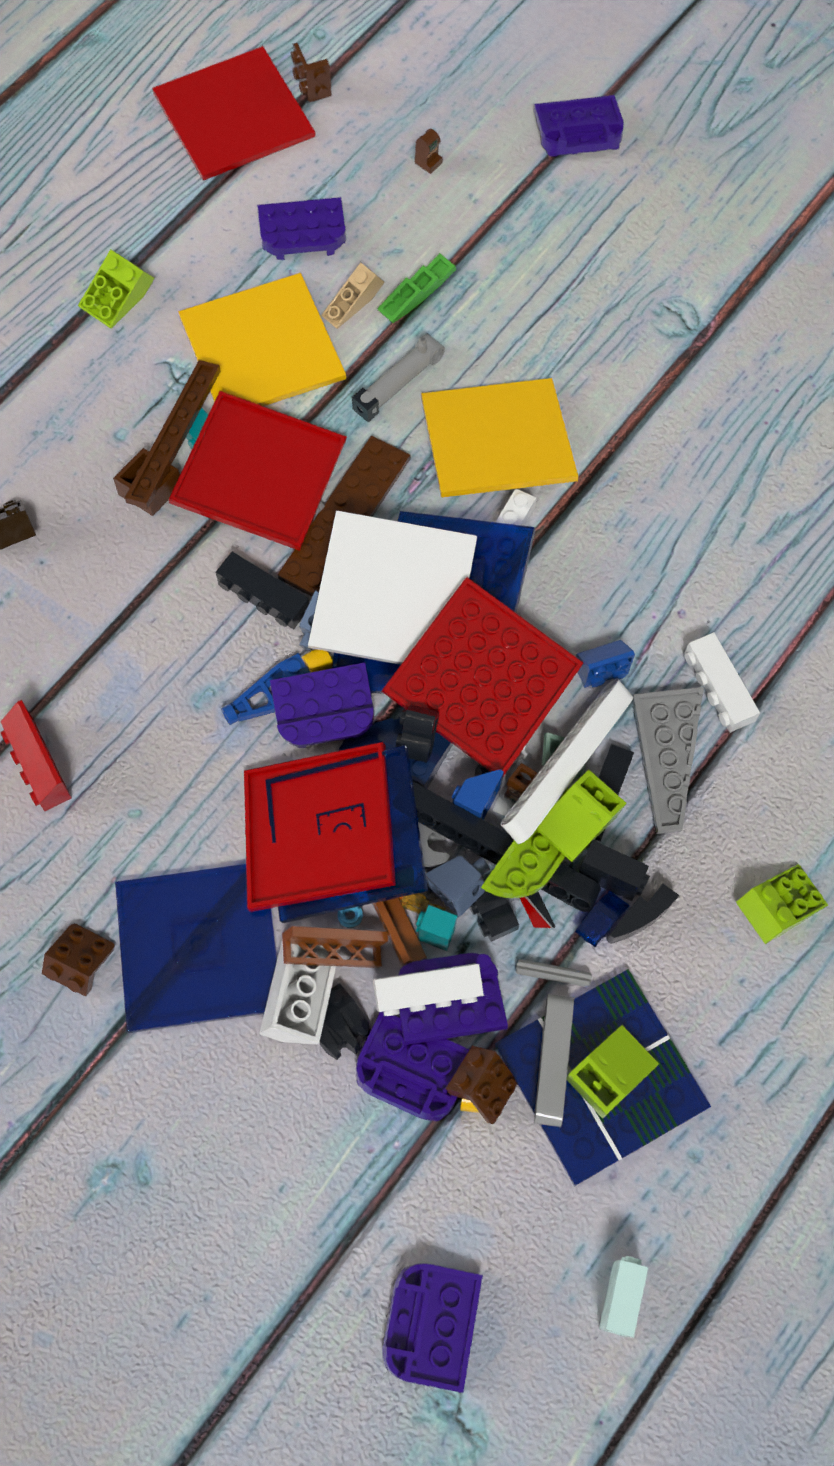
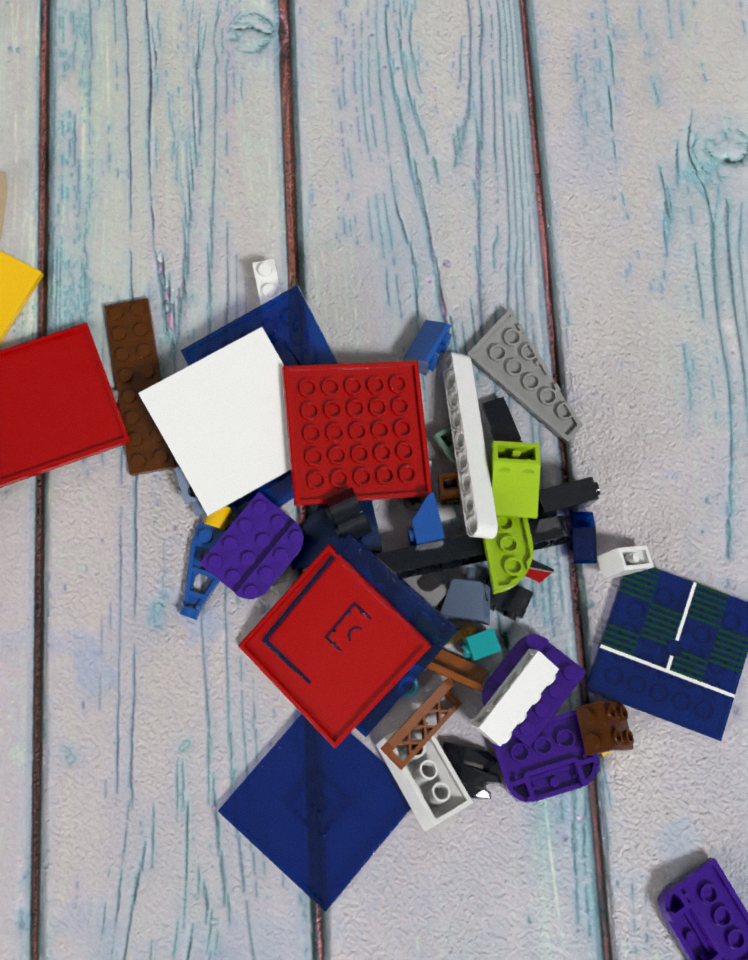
camera: 40 degrees left, 10 degrees up
(34, 757) = (71, 772): red slope -> none
(76, 958) = (241, 891): reddish brown bracket -> none
(262, 590) = (129, 496): black brick -> none
(417, 289) = (35, 158): bright green slope -> none
(425, 353) = (78, 280): light grey piece -> none
(498, 437) = (203, 232): yellow tile -> none
(553, 973) = (581, 604): light grey axle -> none
(554, 1060) = (638, 668): light grey beam -> none
(612, 1071) = (683, 642): lime slope -> none
(620, 964) = (624, 561): none -> white slope
(644, 914) = (608, 509): black slope -> none
(721, 682) = (519, 294): white brick -> none
(781, 903) = (690, 423): lime slope -> none

